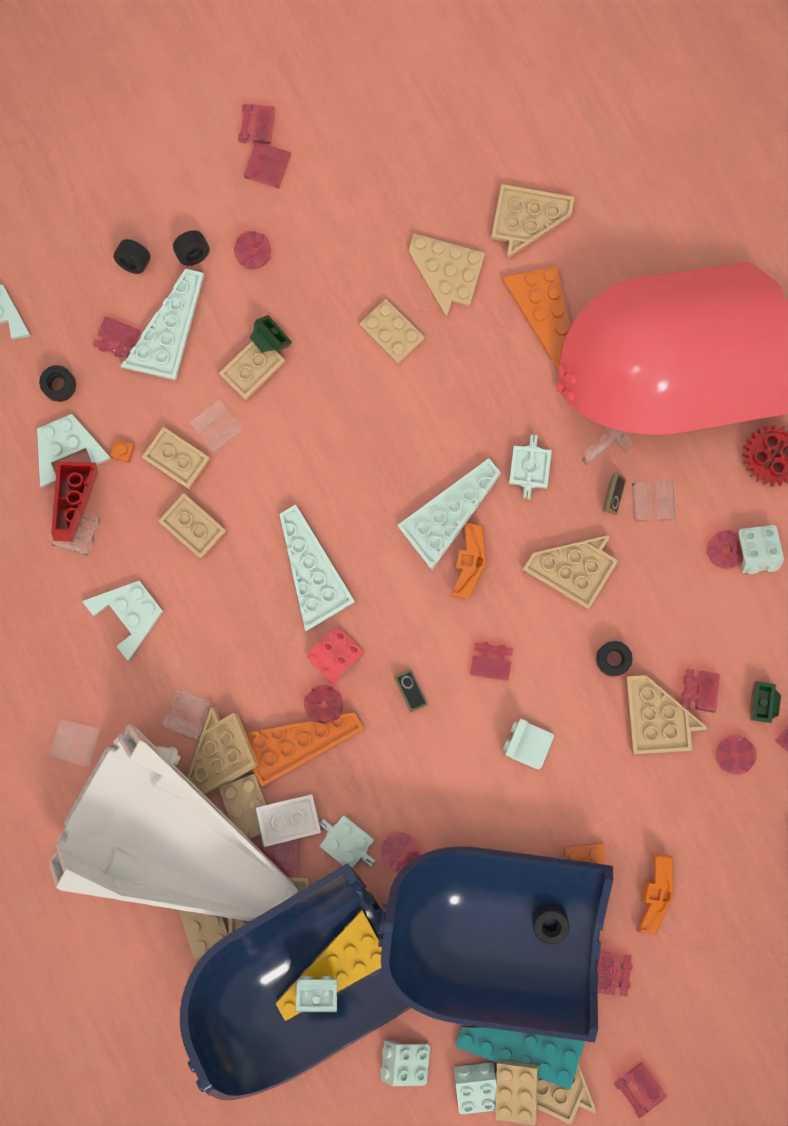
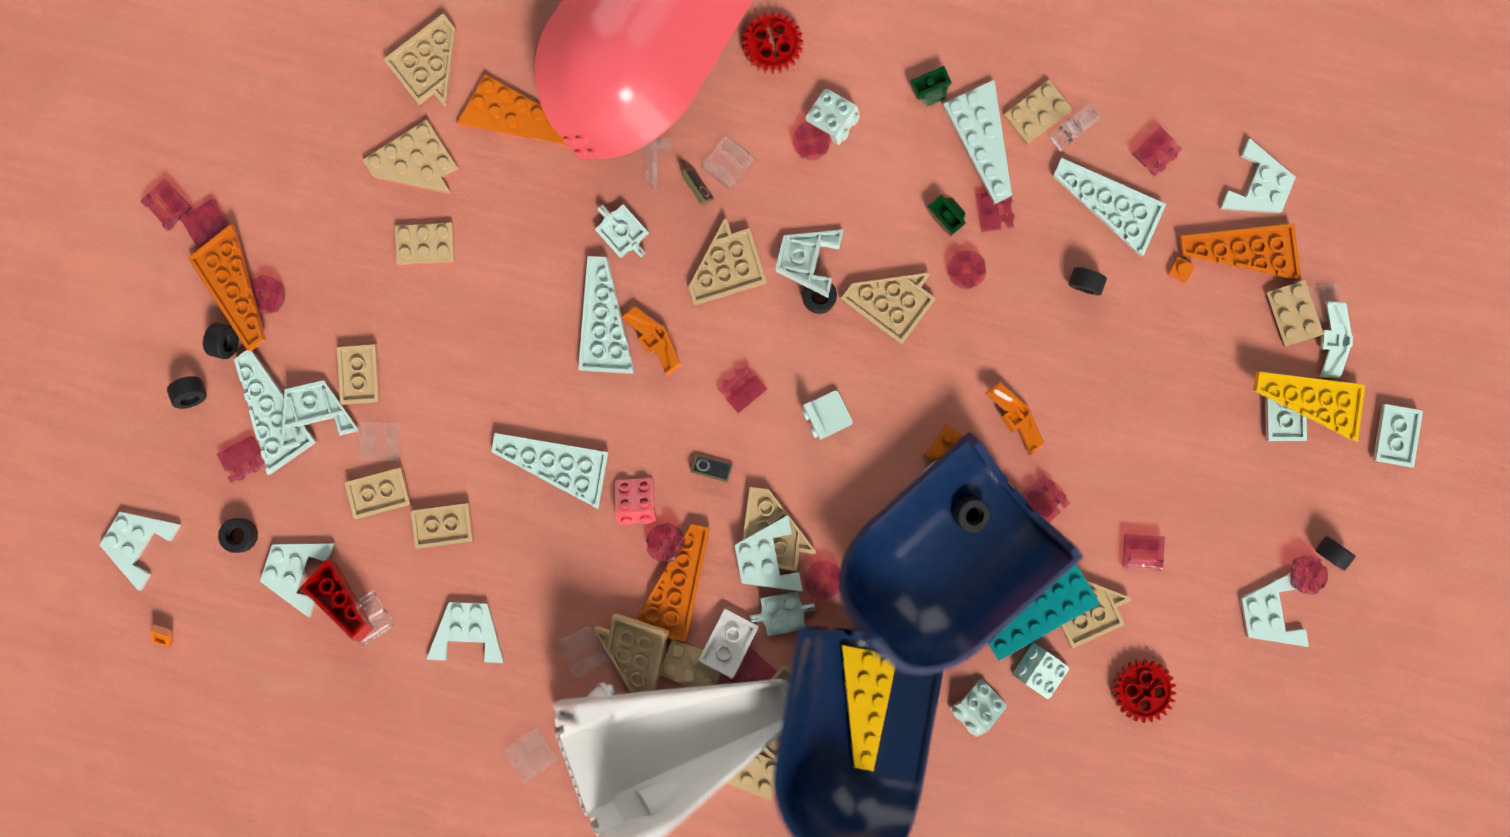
camera: 55 degrees left, 5 degrees up
(122, 450) = (335, 529): orange plate -> none
(197, 351) = (309, 405): none -> light aqua wing
(241, 210) = (227, 279): none -> orange wing
(268, 335) = (344, 340): dark green slope -> none
(316, 994) = (874, 732): light aqua bracket -> none
(372, 787) = (759, 562): none -> light aqua wing
(399, 780) = (765, 510): none -> tan wing
(516, 1092) = (1069, 644): tan plate -> none
(630, 617) = (800, 255): none -> light aqua wing
(707, 690) = (902, 248): clear pink plate -> none

